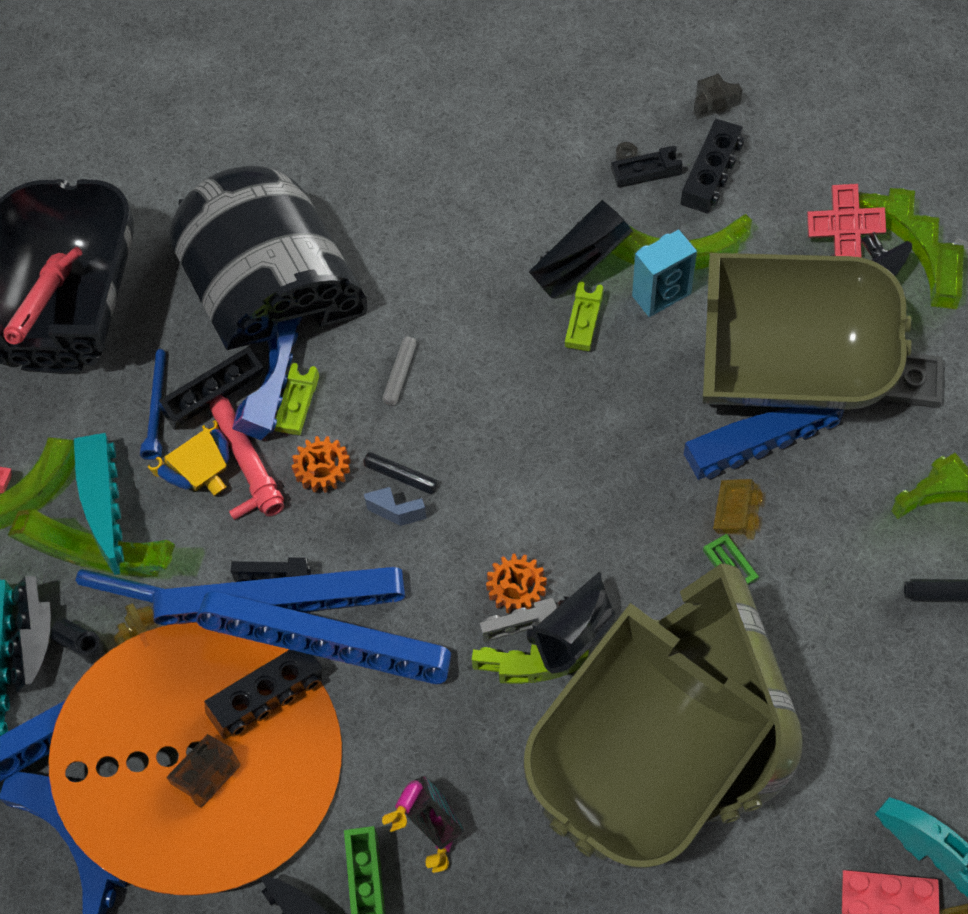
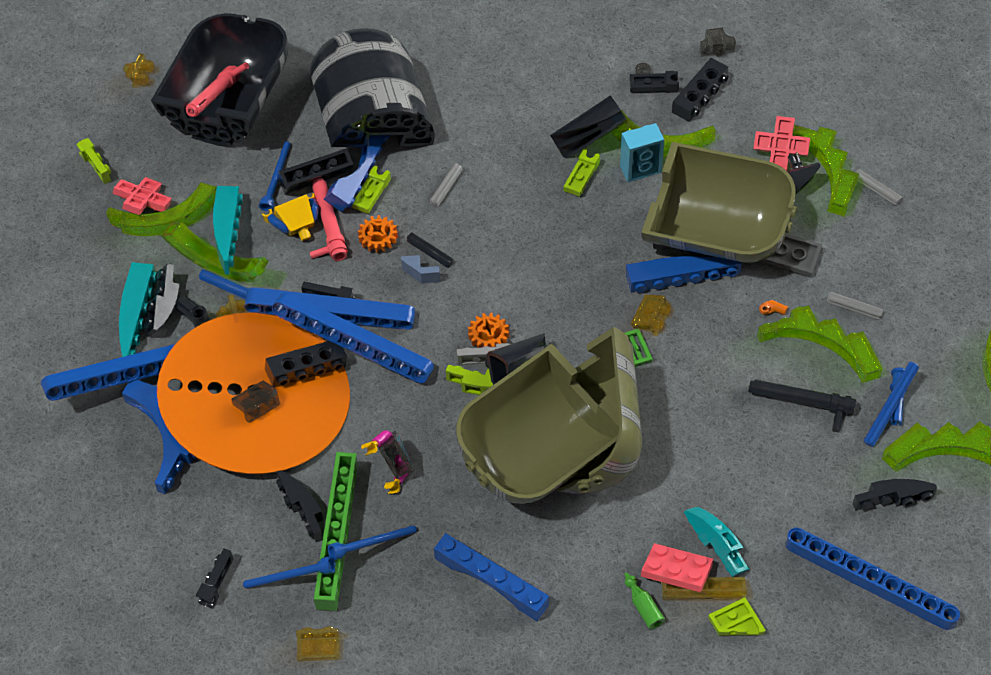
camera: 10 degrees right, 5 degrees down
(899, 462) = (771, 307): none -> orange arm

